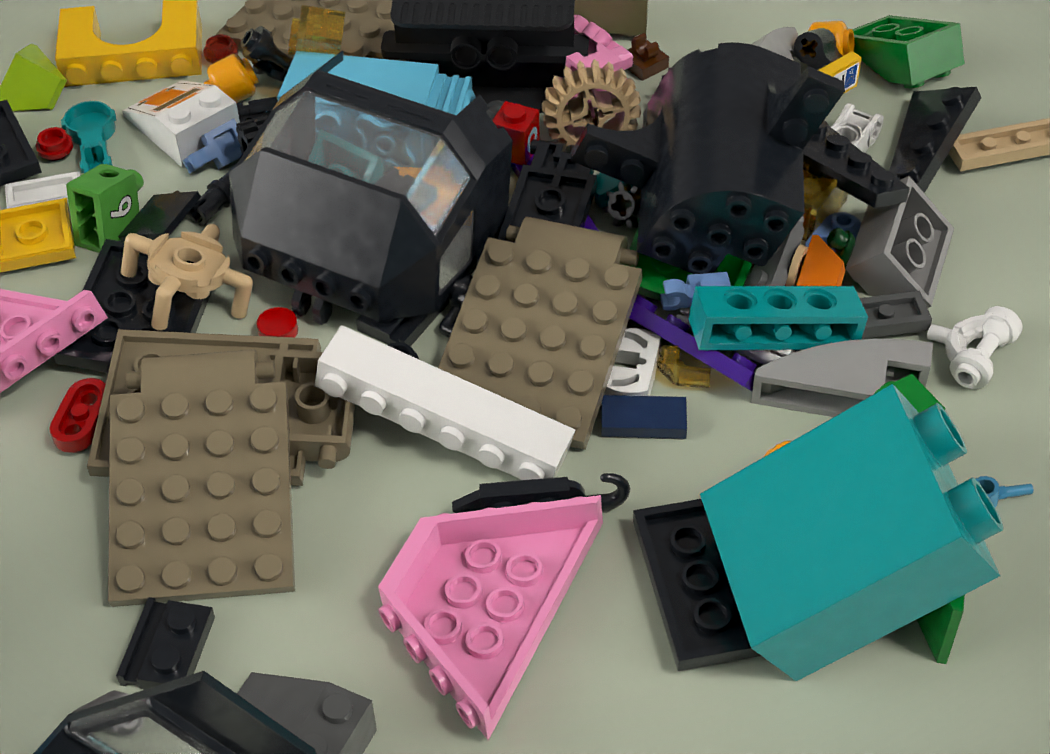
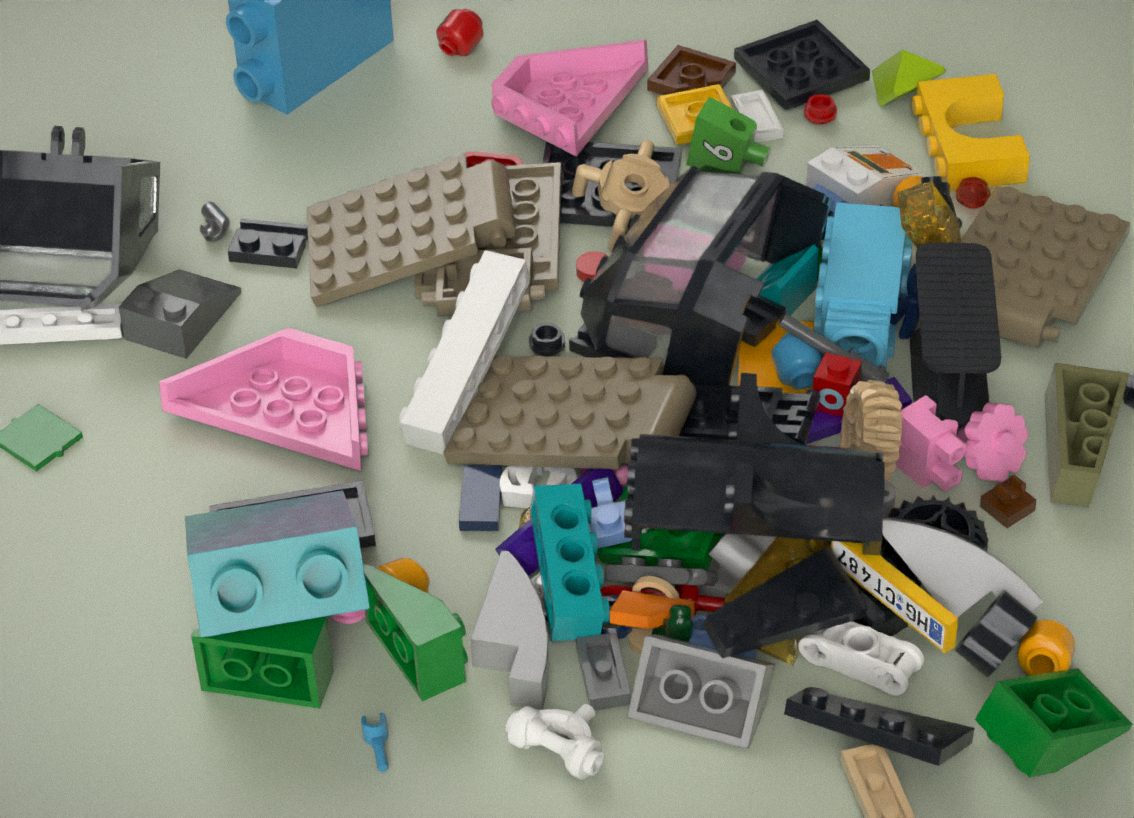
camera: 90 degrees right, 5 degrees down
(90, 127) = (847, 128): teal piece -> none
(538, 490) = (378, 428): black plate -> none

